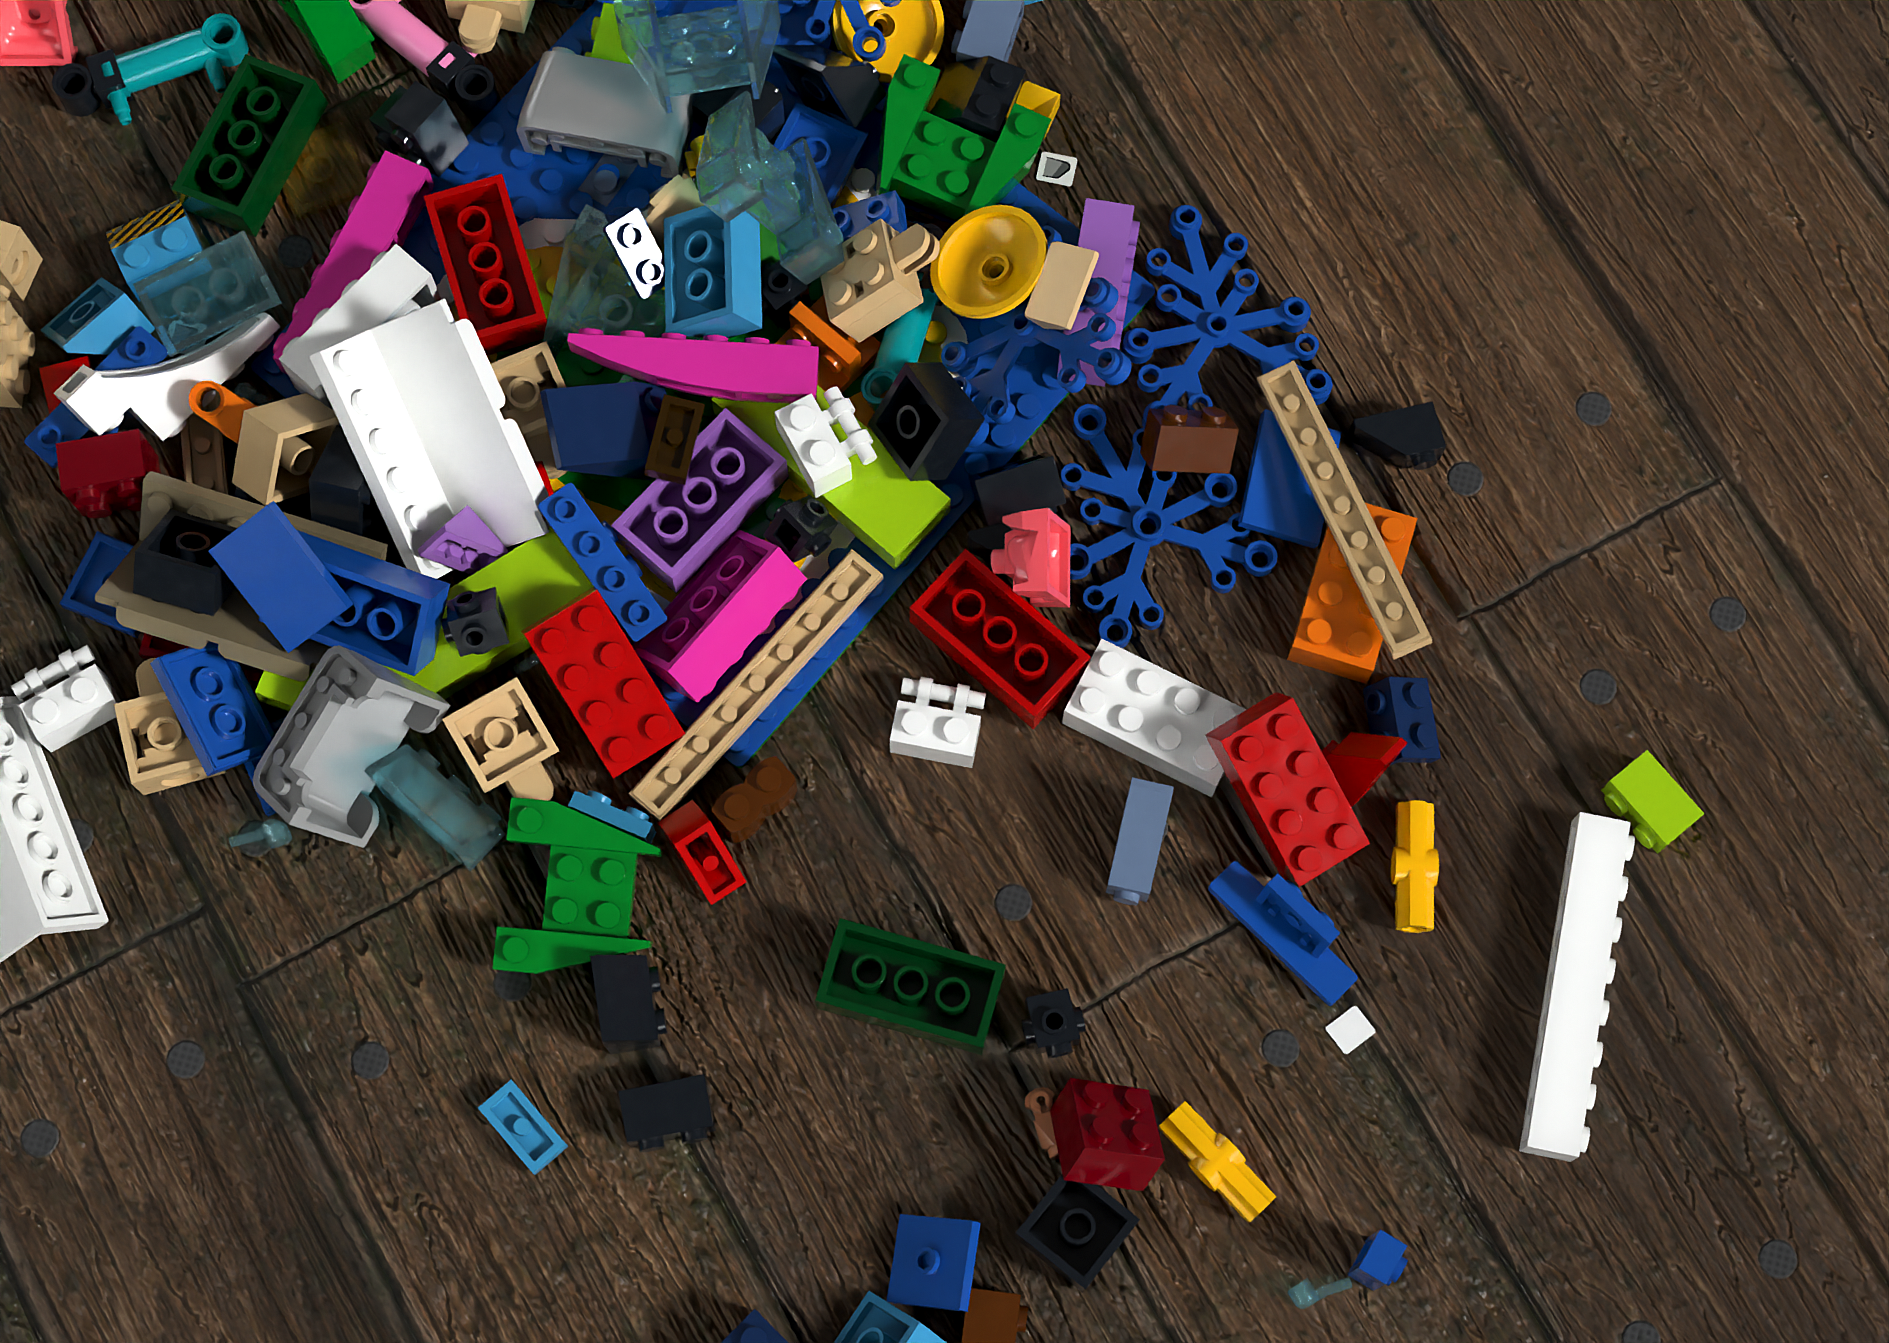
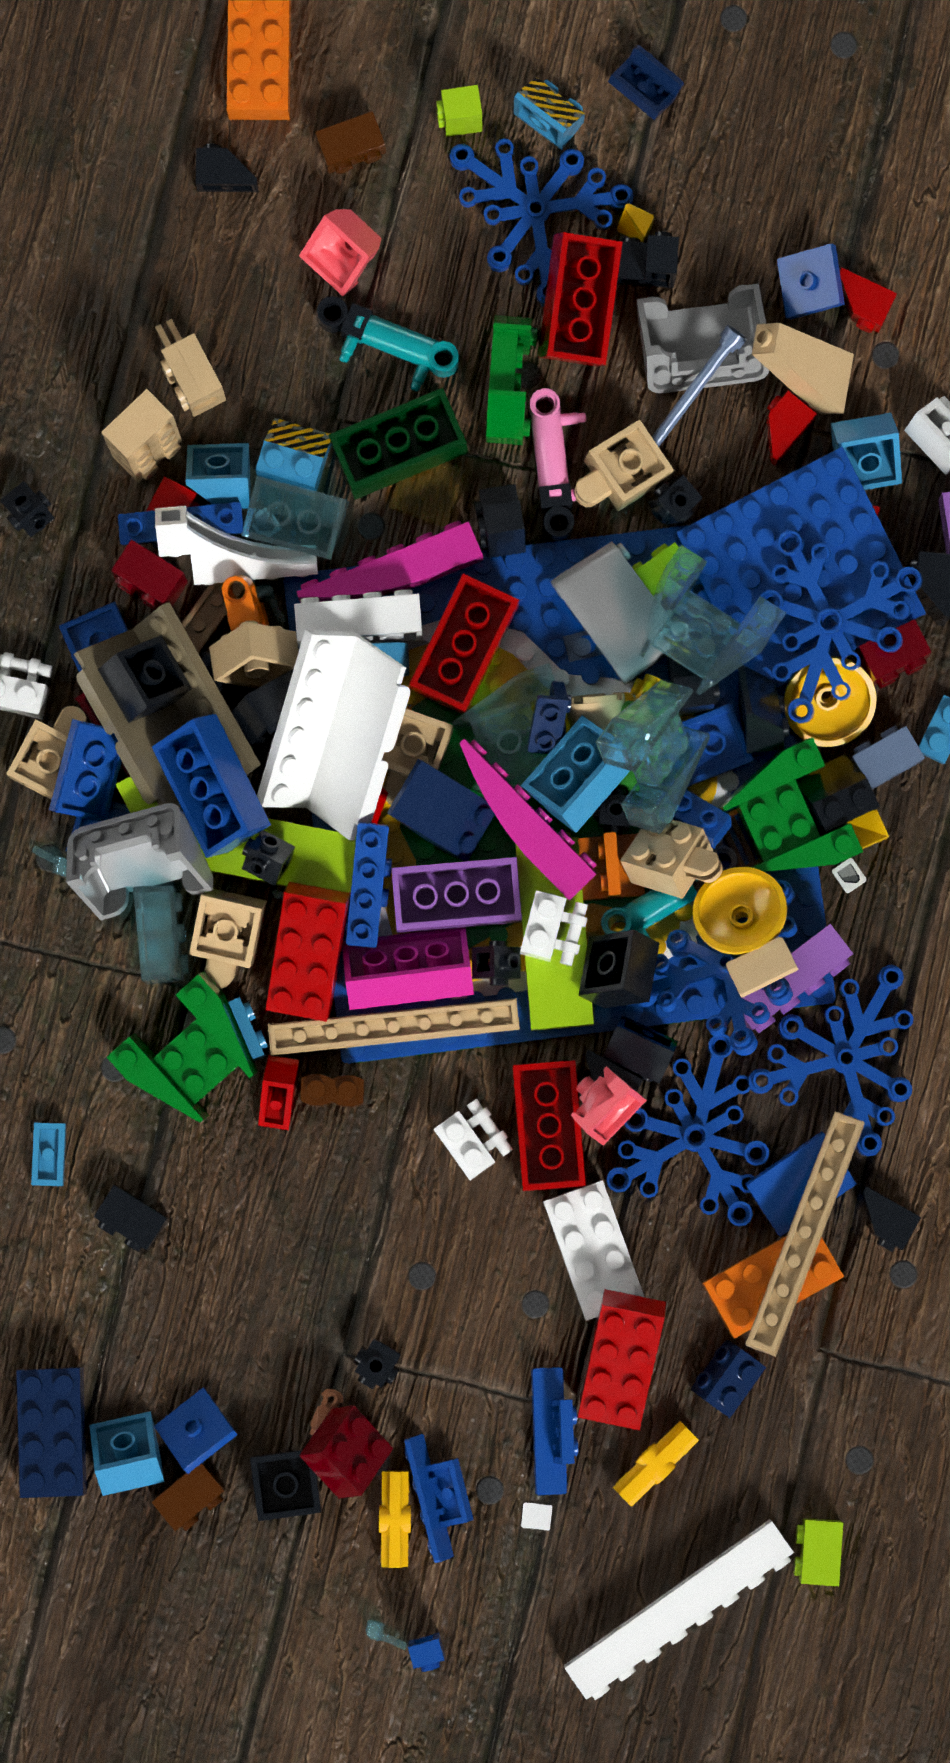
camera: 45 degrees right, 10 degrees up
(280, 577) = (181, 740): blue tile -> none
(464, 544) = (304, 802): medium lavender slope -> none
(627, 1002) = (162, 1141): black slope -> none
(674, 439) = (468, 852): dark brown plate -> none
(910, 986) = (319, 1273): dark green brick -> none
(1139, 841) = (515, 1311): sand blue slope -> none
(1189, 440) = (761, 1112): reddish brown brick -> none
(1240, 1094) = (440, 1496): none -> blue bracket
(1361, 761) = (676, 1380): red slope -> none

